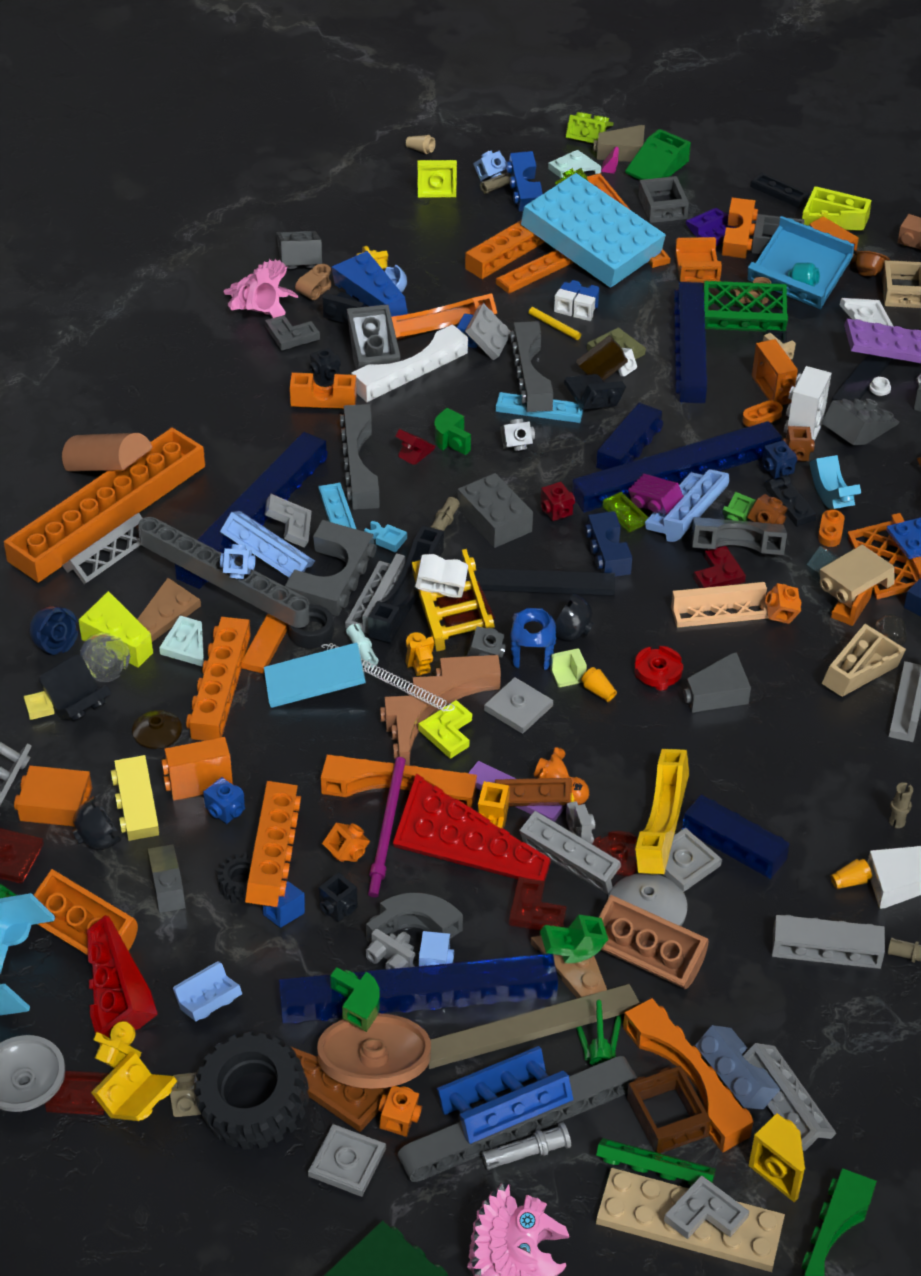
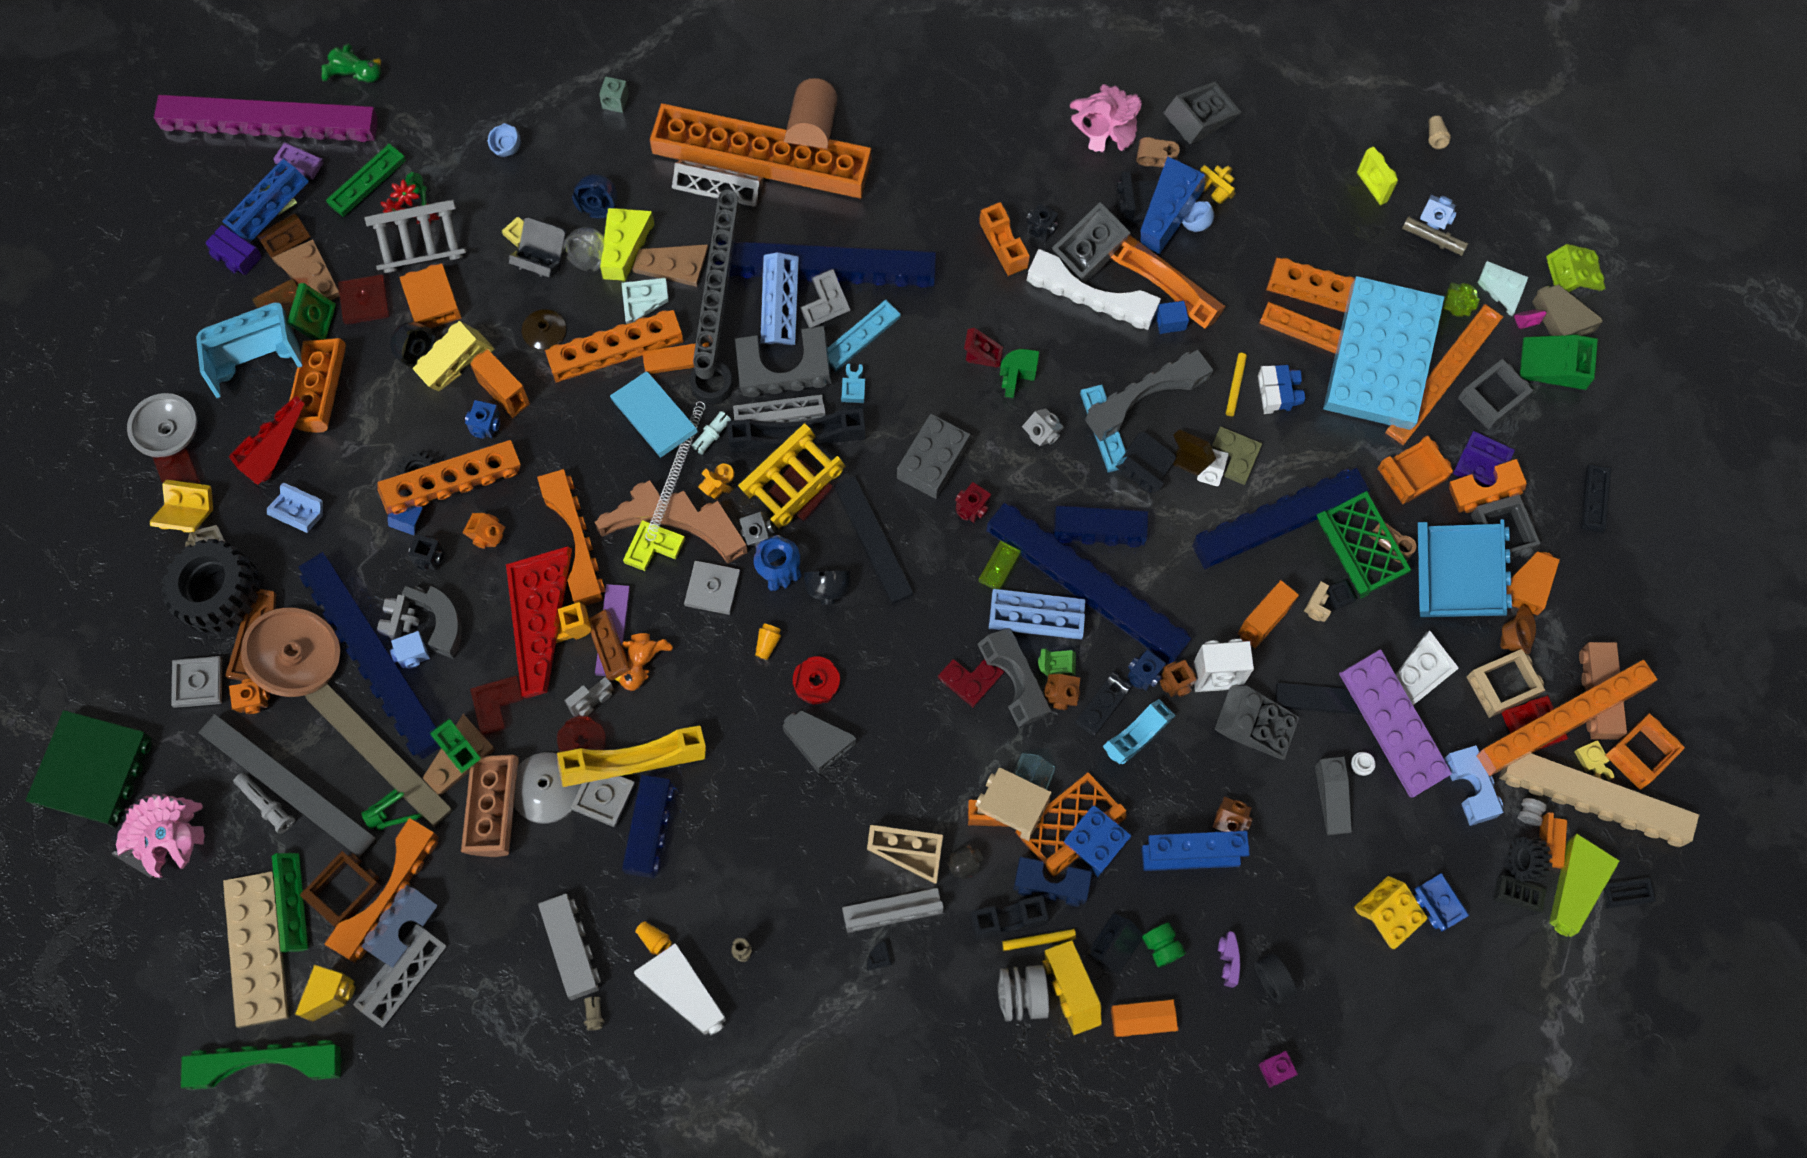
camera: 60 degrees right, 25 degrees up
(117, 1048) = (211, 474): yellow hips -> none
(166, 878) = (393, 418): dark grey slope -> none
(228, 563) = (708, 290): light blue brick -> none
(289, 336) = (1071, 172): dark grey plate -> none
(362, 482) = (978, 290): dark grey arch -> none
(363, 997) = (326, 620): green brick -> none
(378, 869) = (475, 567): magenta bar -> none
(441, 575) = (796, 454): white brick -> none
(445, 515) = (904, 419): dark tan pin -> none
(488, 331) = (1172, 333): light grey plate -> none
(508, 1109) = (285, 784): blue fence -> none
(523, 167) = (1443, 241): blue arch -> none
(568, 667) = (773, 608): yellowish green panel -> none
(570, 851) = (553, 705): light grey fence -> none
(604, 541) = (958, 557): dark blue arch -> none
(655, 494) = (1024, 582): magenta brick -> none
(702, 1203) = (257, 956): light grey plate -> none
(718, 601) = (928, 694): light nougat fence -> none
(762, 412) = (1212, 626): orange plate -> none
(783, 603) = (951, 760): orange brick -> none
(805, 273) = (1442, 581): teal head -> none
(831, 528) = (1087, 755): orange plate -> none
(841, 208) = (1581, 566): neon yellow wedge -> none
(880, 386) = (1323, 721): white plate -> none

